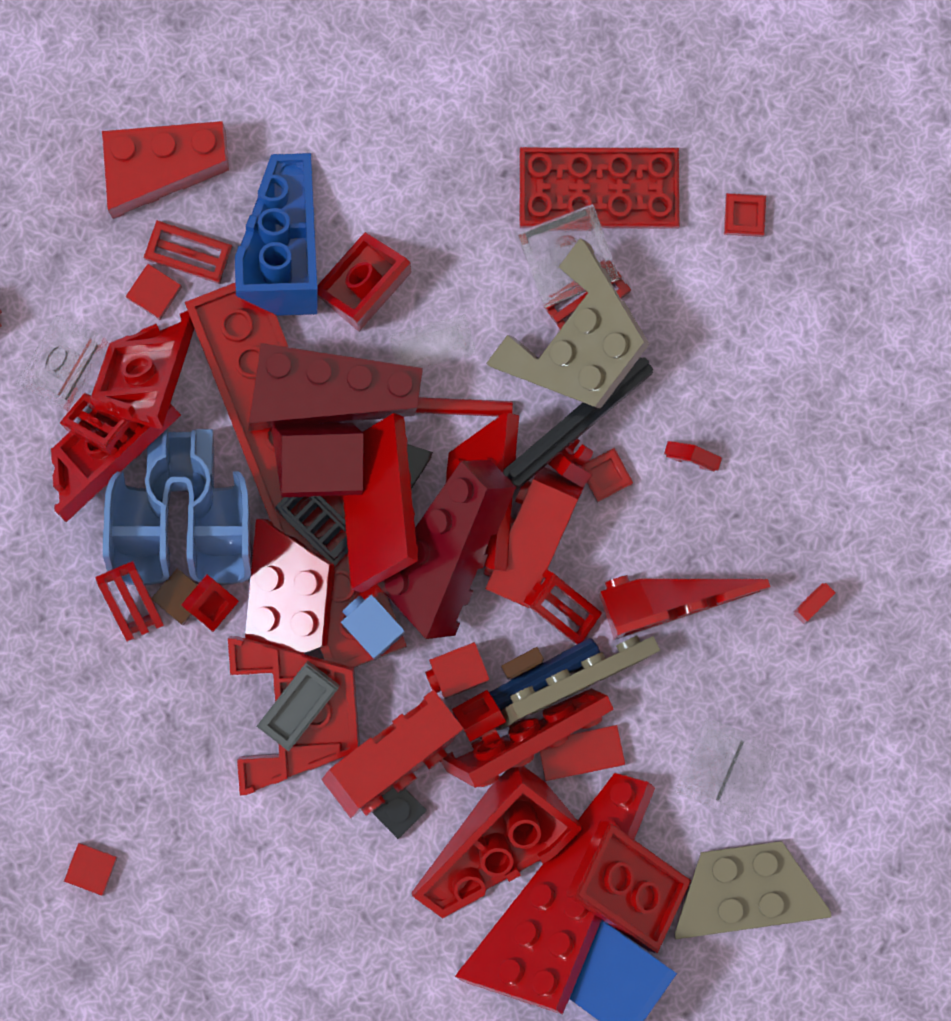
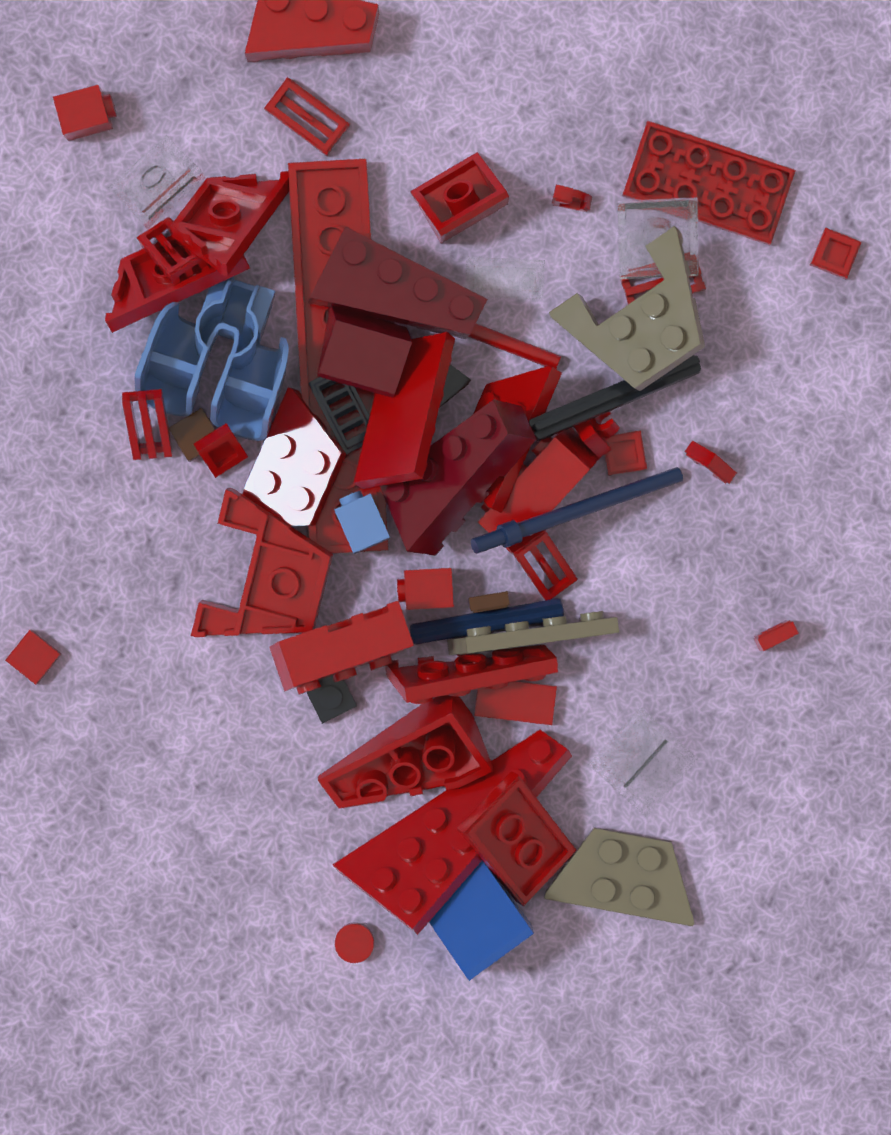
camera: 20 degrees right, 5 degrees up
(153, 291) = (263, 143): red tile -> none
(278, 248) = (390, 143): blue wedge -> none
(298, 705) = (270, 572): dark grey tile -> none
(470, 246) = (563, 198): none -> red tile
(480, 718) = (432, 639): red tile -> none
(524, 585) = (513, 532): none -> dark blue bar
(652, 602) = (628, 585): red wedge -> none

